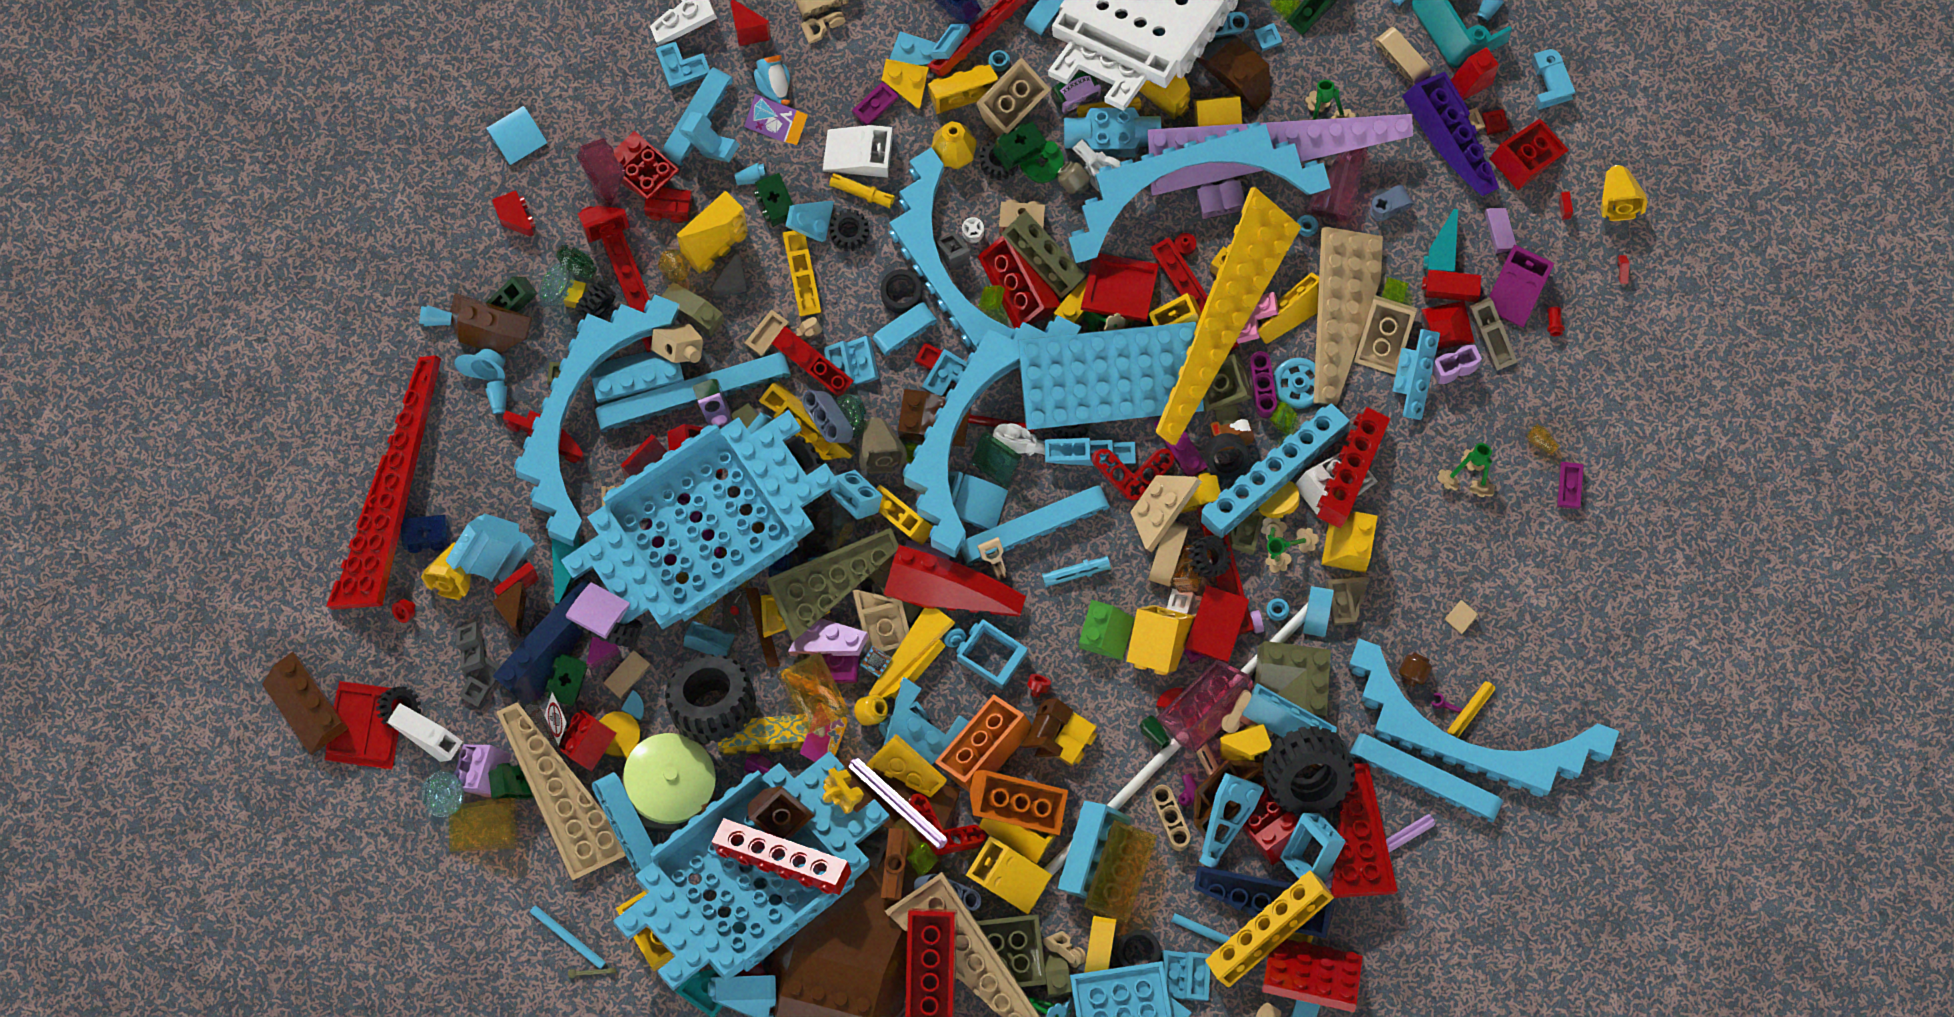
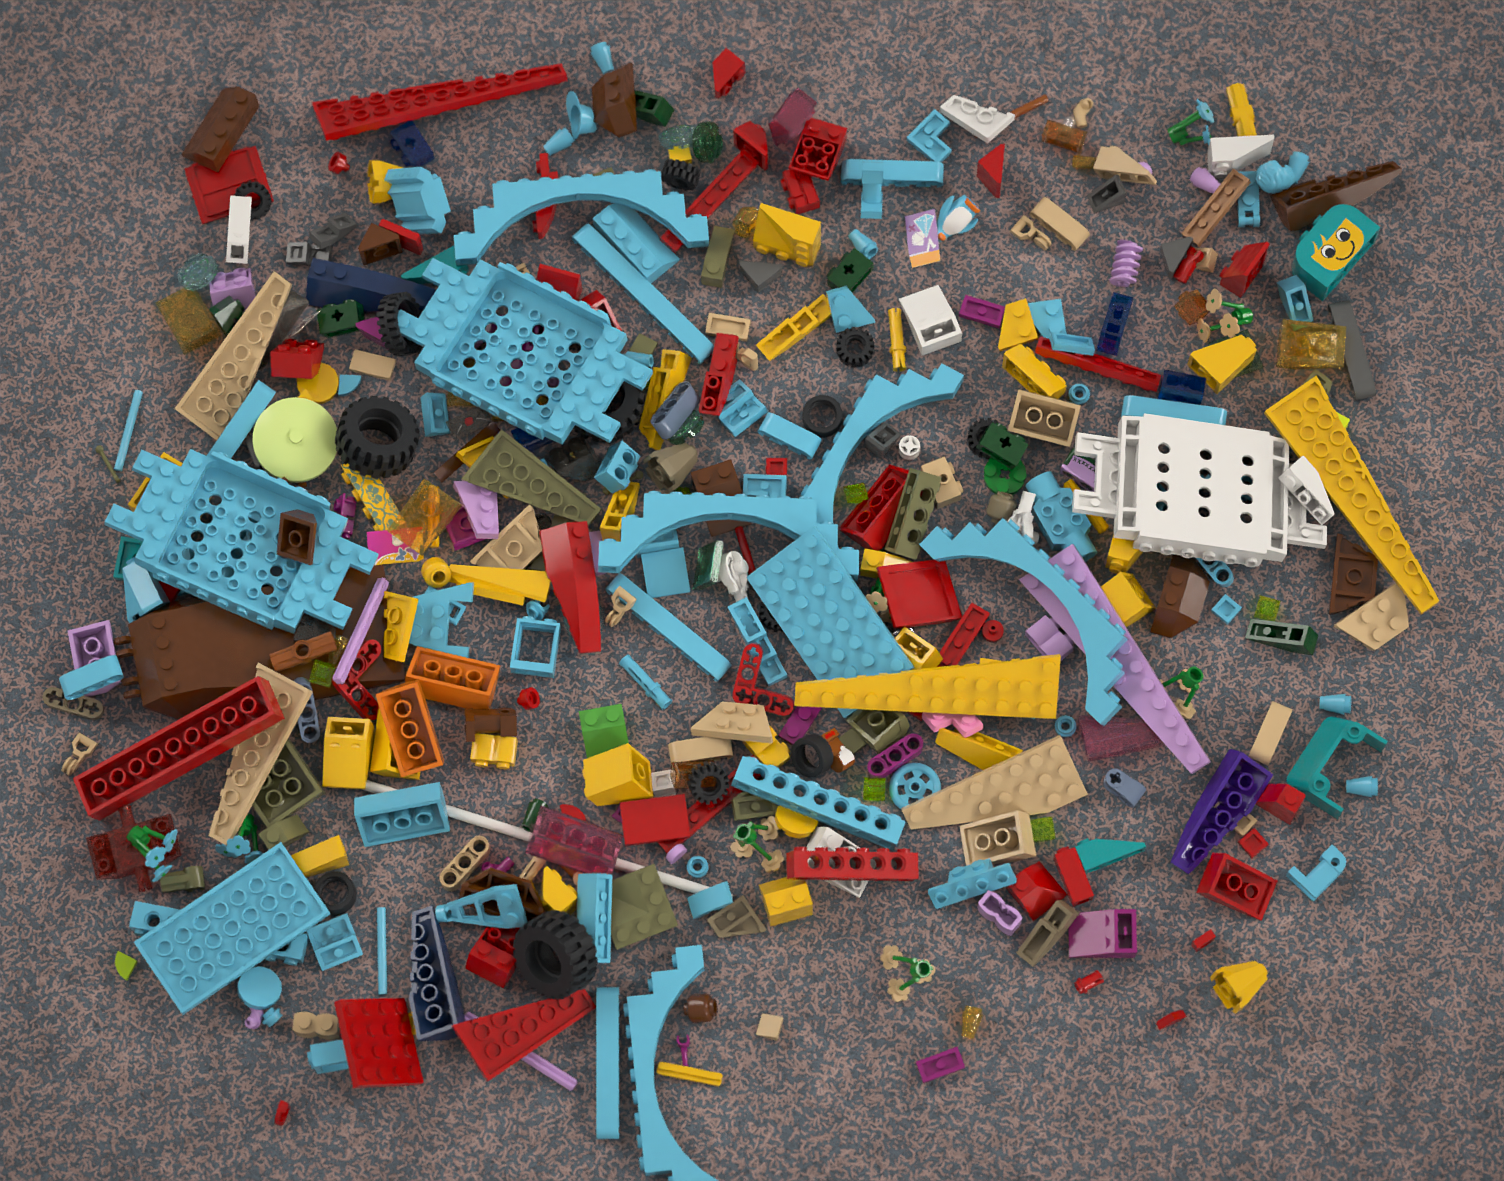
camera: 65 degrees right, 0 degrees up
(516, 135) = (797, 39): medium azure slope -> none
(597, 610) = (399, 305): lavender slope -> none
(677, 343) = (675, 257): tan torso -> none
(712, 391) = (644, 309): lavender piece -> none
(773, 847) = (259, 603): brick -> none
(837, 790) = (338, 584): yellow hips -> none
(875, 661) = (480, 555): tile -> none
(954, 145) = (979, 395): yellow cone -> none
(1075, 956) = (303, 837): tan piece -> none
(1120, 872) = (393, 842): clear yellow slope -> none
(1231, 722) = (566, 868): tan piece -> none
(1269, 928) = (401, 988): yellow brick -> none
(1312, 825) = (504, 986): medium azure window -> none
(1500, 229) = (1151, 895): lavender slope -> none

